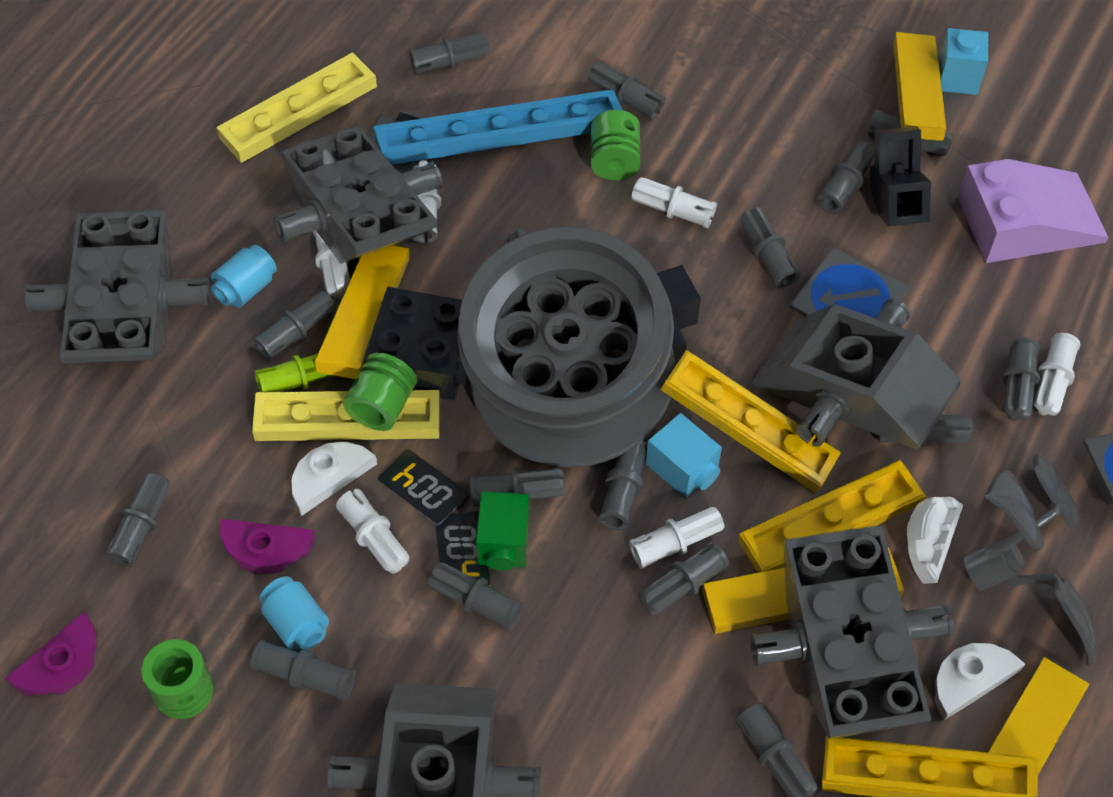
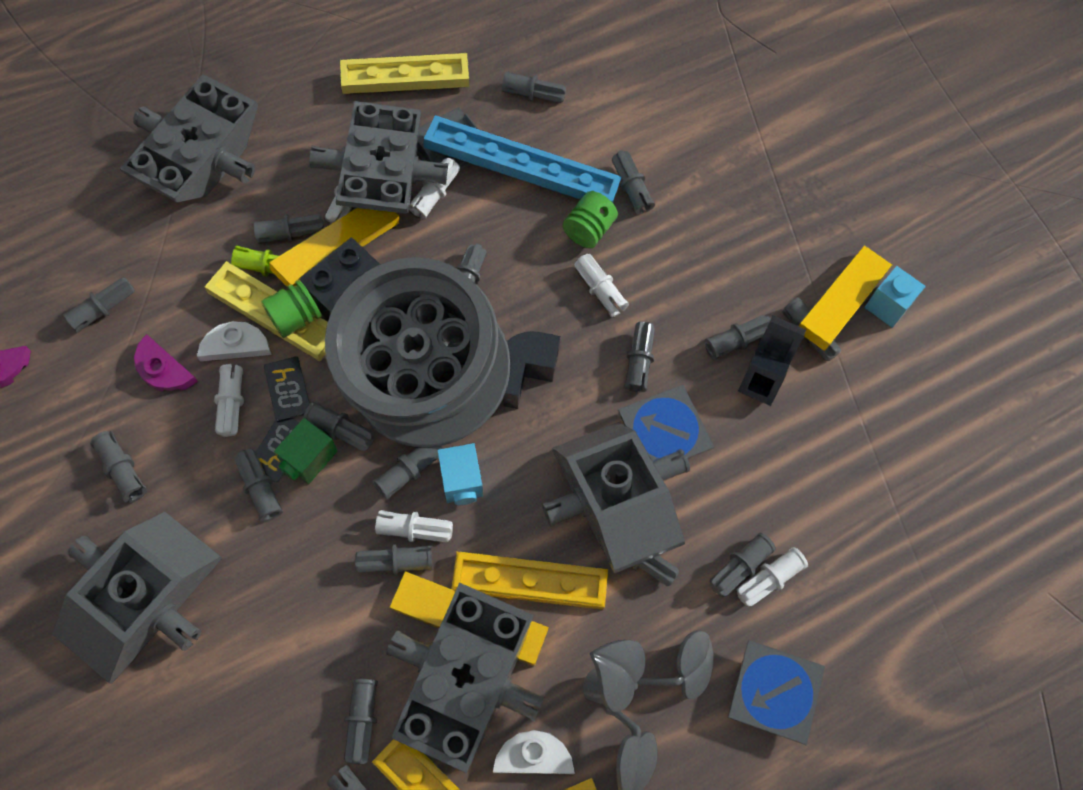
camera: 30 degrees right, 10 degrees up
(177, 679) = (39, 425): bright green piece -> none
(243, 276) = (279, 175): medium azure brick -> none
(293, 614) = (139, 426): medium azure brick -> none
(749, 421) = (520, 475): yellow tile -> none
(931, 534) = (585, 635): white plate -> none
(1027, 210) = (855, 441): lavender slope -> none

